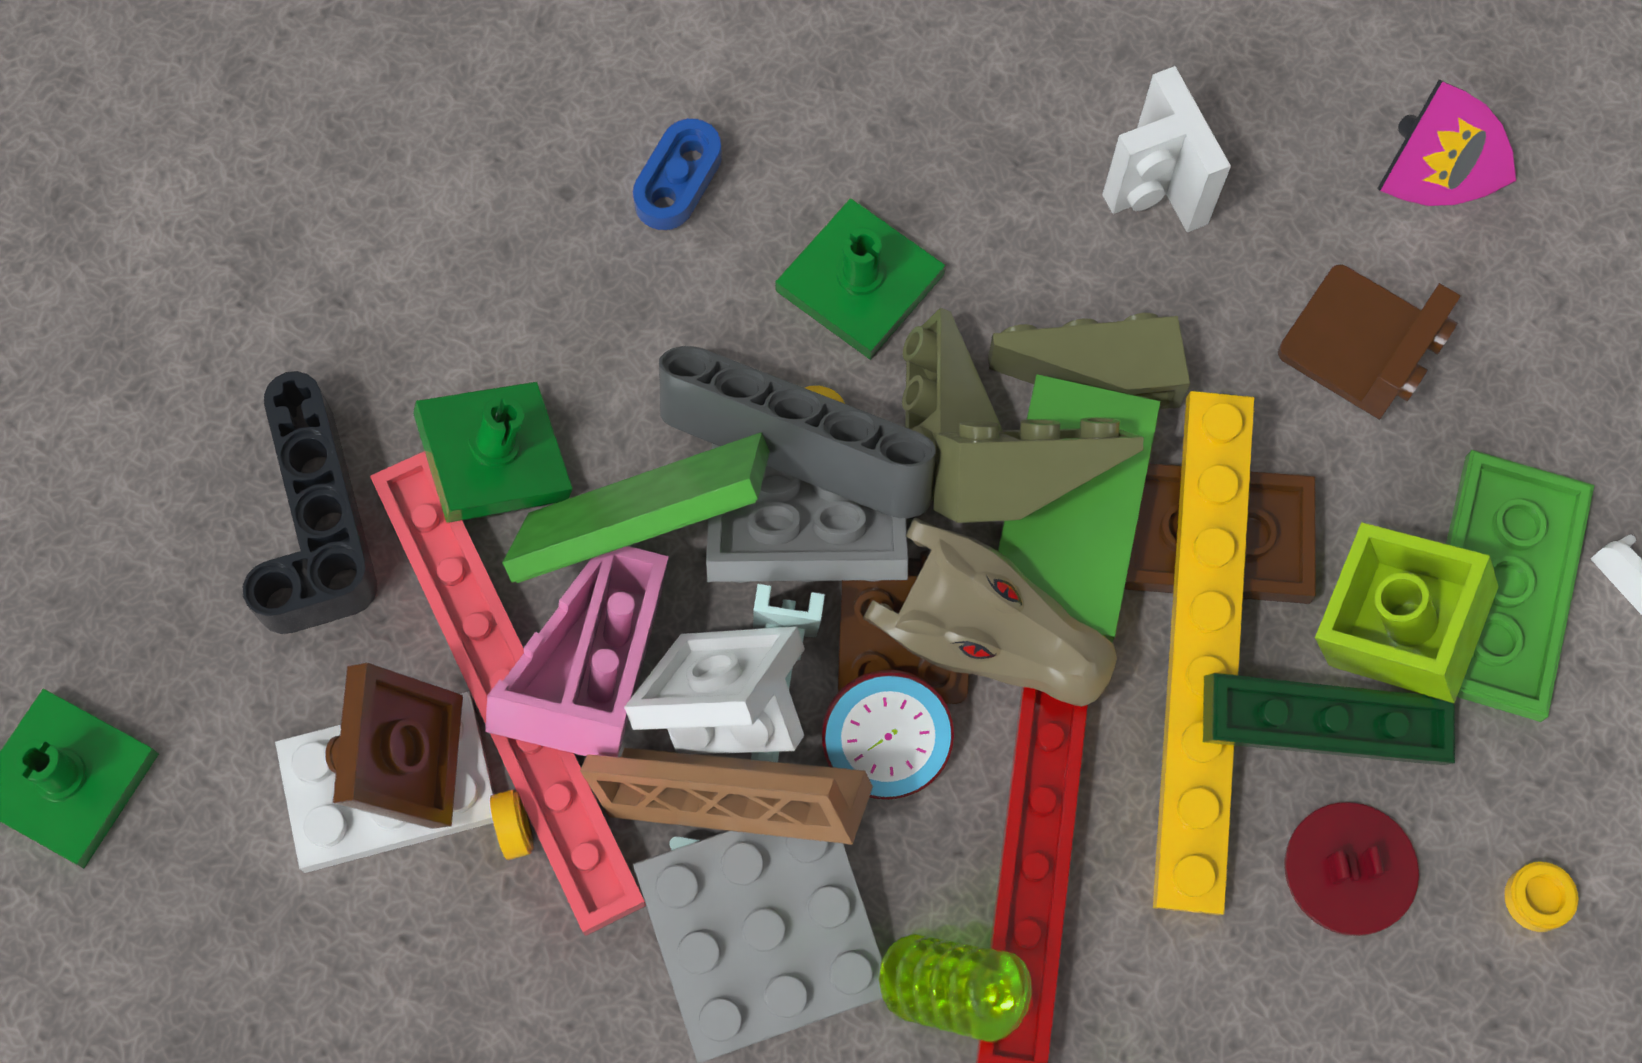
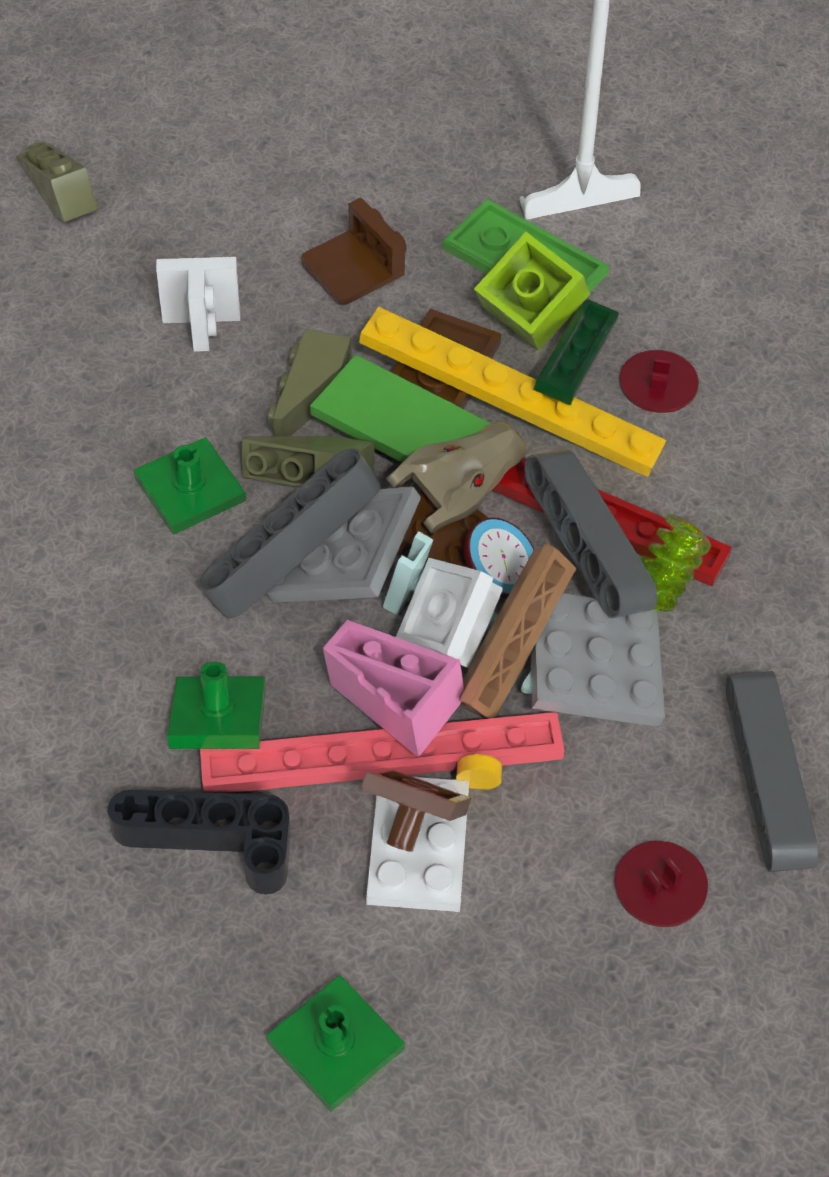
camera: 70 degrees left, 15 degrees down
(638, 508) = (309, 622): bright green tile -> none
(674, 177) = (69, 556): blue plate -> none
(956, 848) = (590, 534): none -> dark grey beam
(1015, 472) = (378, 418): olive slope -> none
(1450, 152) = (262, 177): dark pink shield -> none
(1541, 896) = (704, 306): yellow tile -> none

